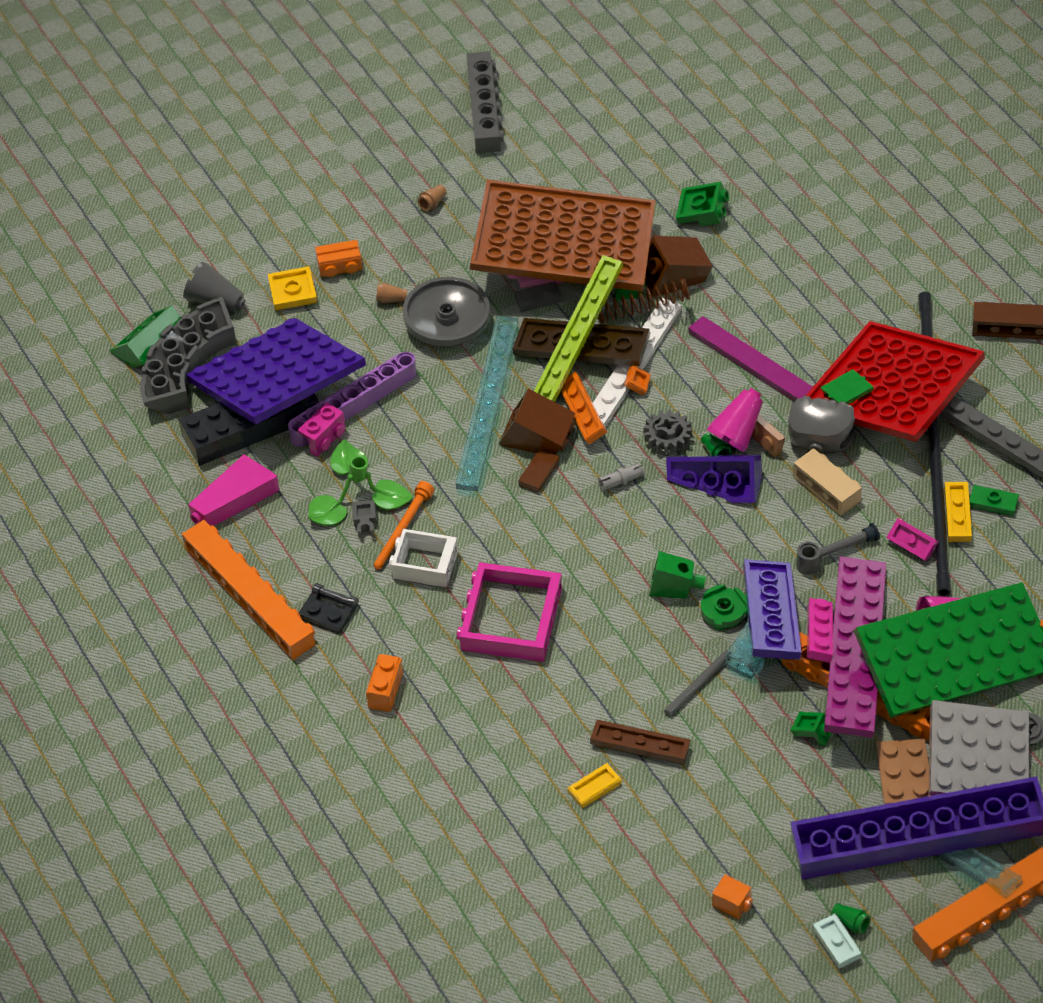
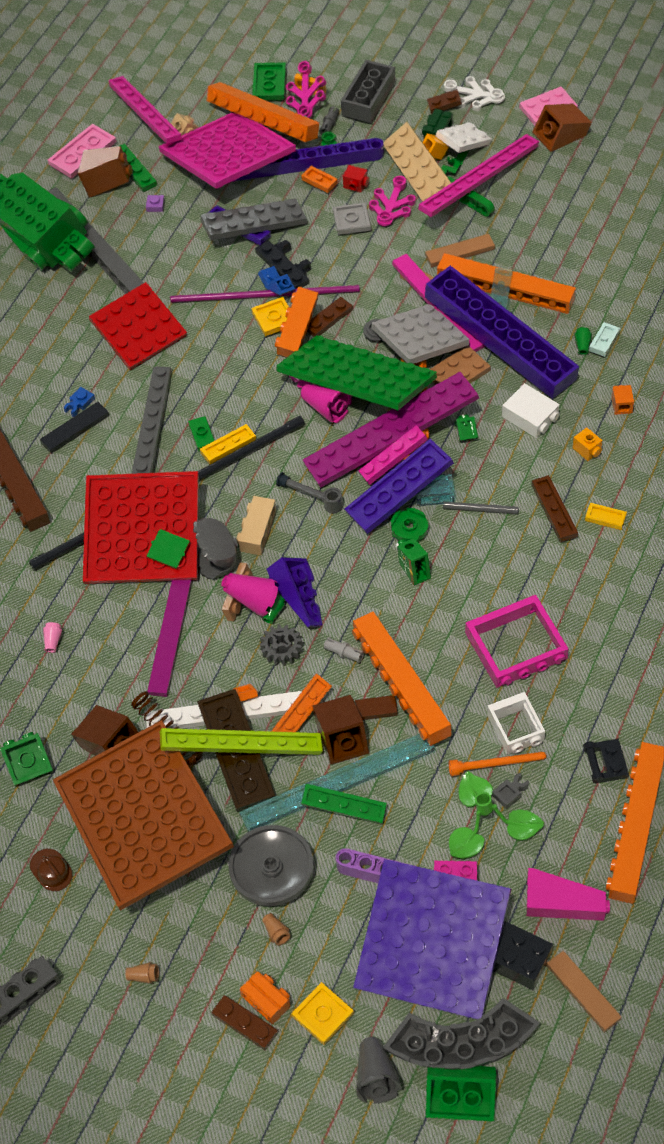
camera: 125 degrees left, 5 degrees up
(147, 463) = (584, 991): none -> medium nougat tile
(345, 234) = (244, 1022): none -> reddish brown plate
(384, 683) = (639, 675): orange brick -> none
(458, 388) = (343, 803): none -> green plate
(547, 494) = (402, 679): none -> orange brick
(582, 180) = (51, 869): none -> reddish brown piece
(696, 822) = (587, 444): none -> light orange brick
(786, 798) = (530, 410): none -> white brick
(824, 275) = (52, 633): none -> bright pink cone
(912, 539) = (272, 454): dark pink plate -> none

